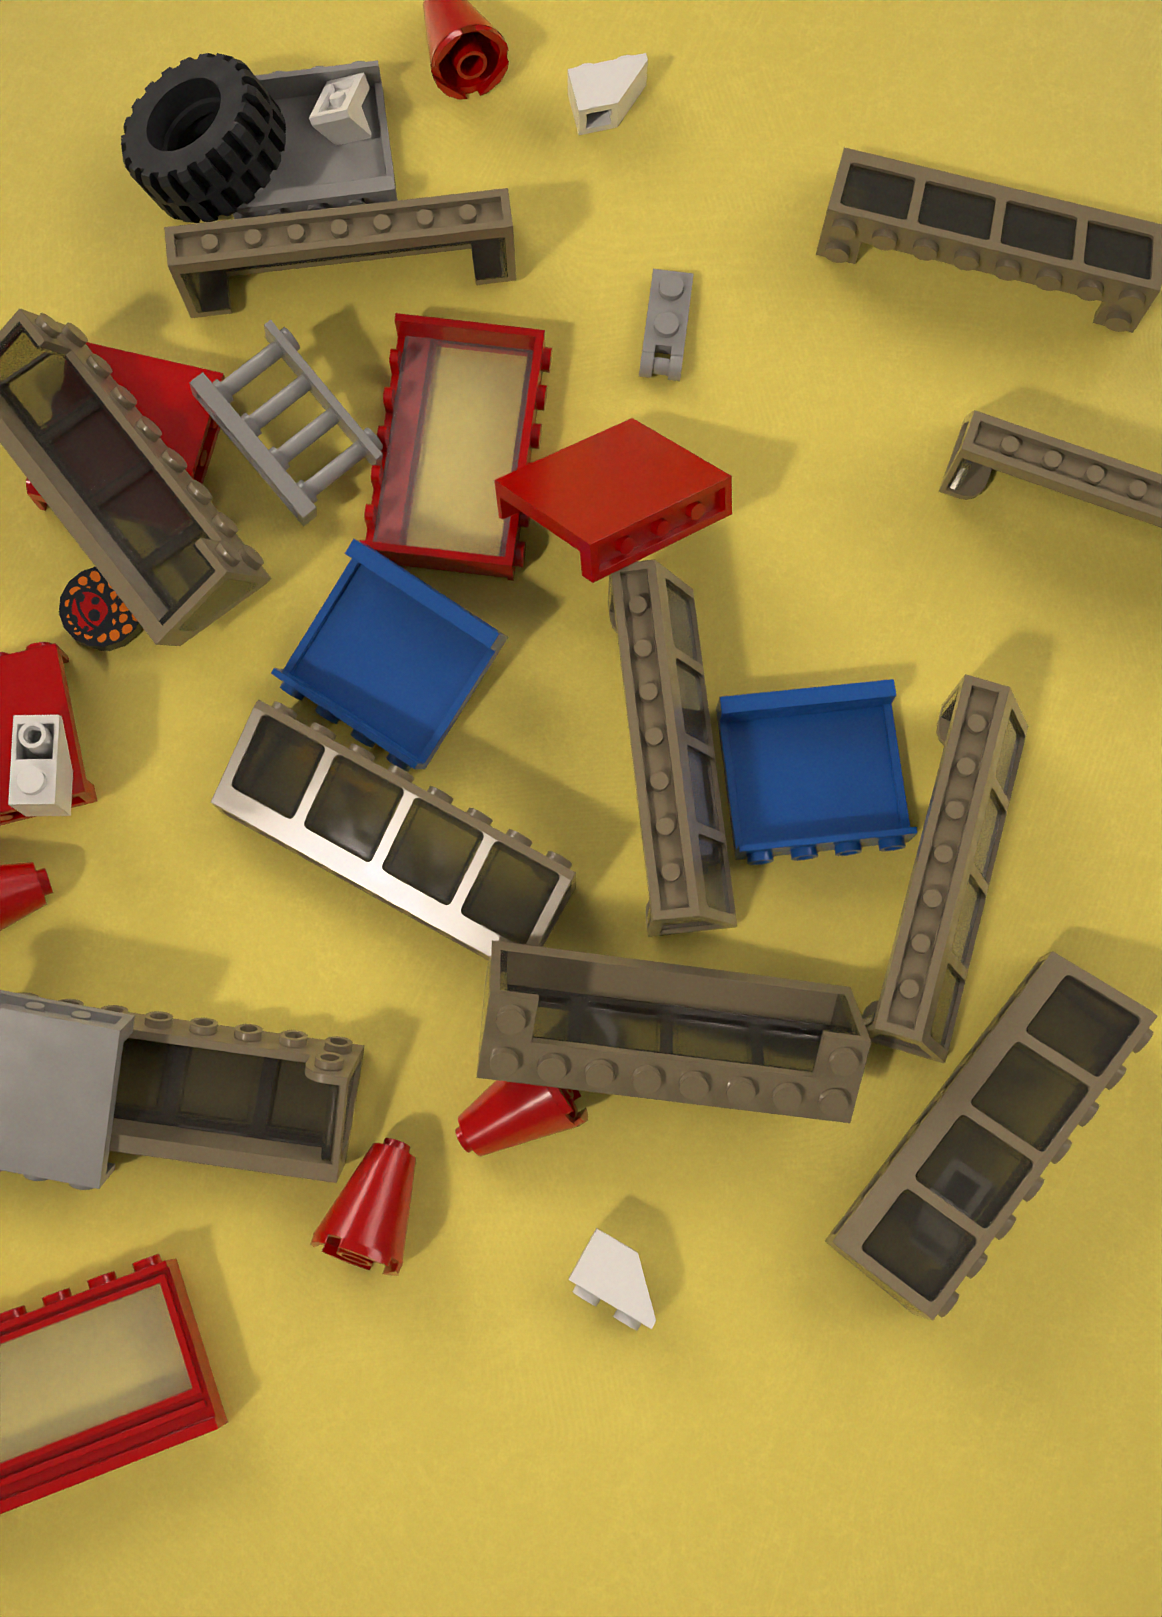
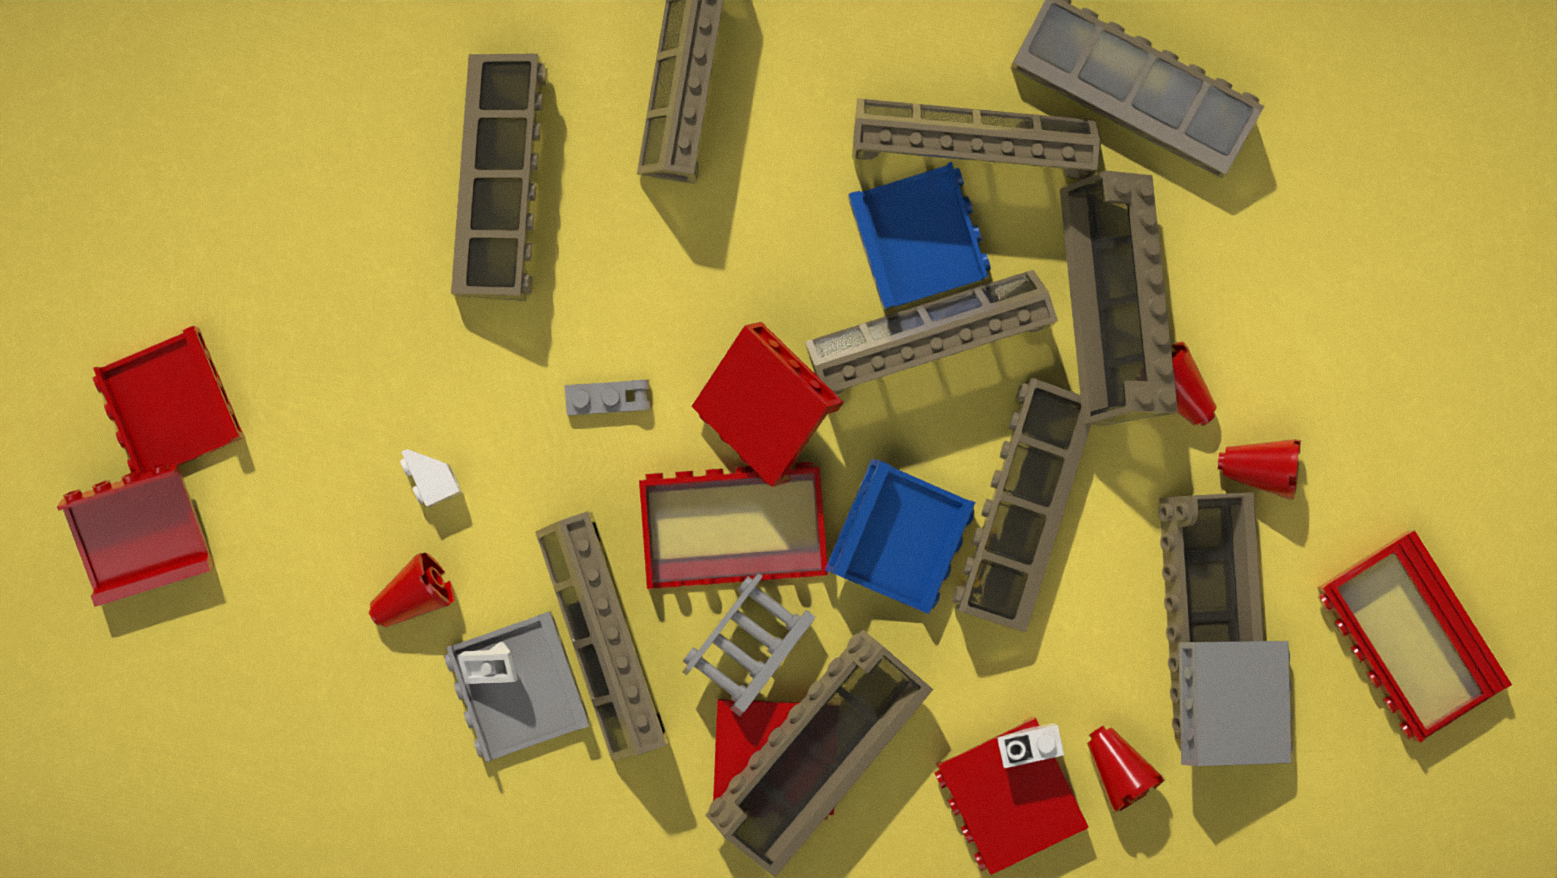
camera: 100 degrees left, 10 degrees up
(96, 613) = (905, 750): tile -> none
(204, 138) = (535, 788): black tyre -> none
(615, 1275) = (1271, 307): white slope -> none

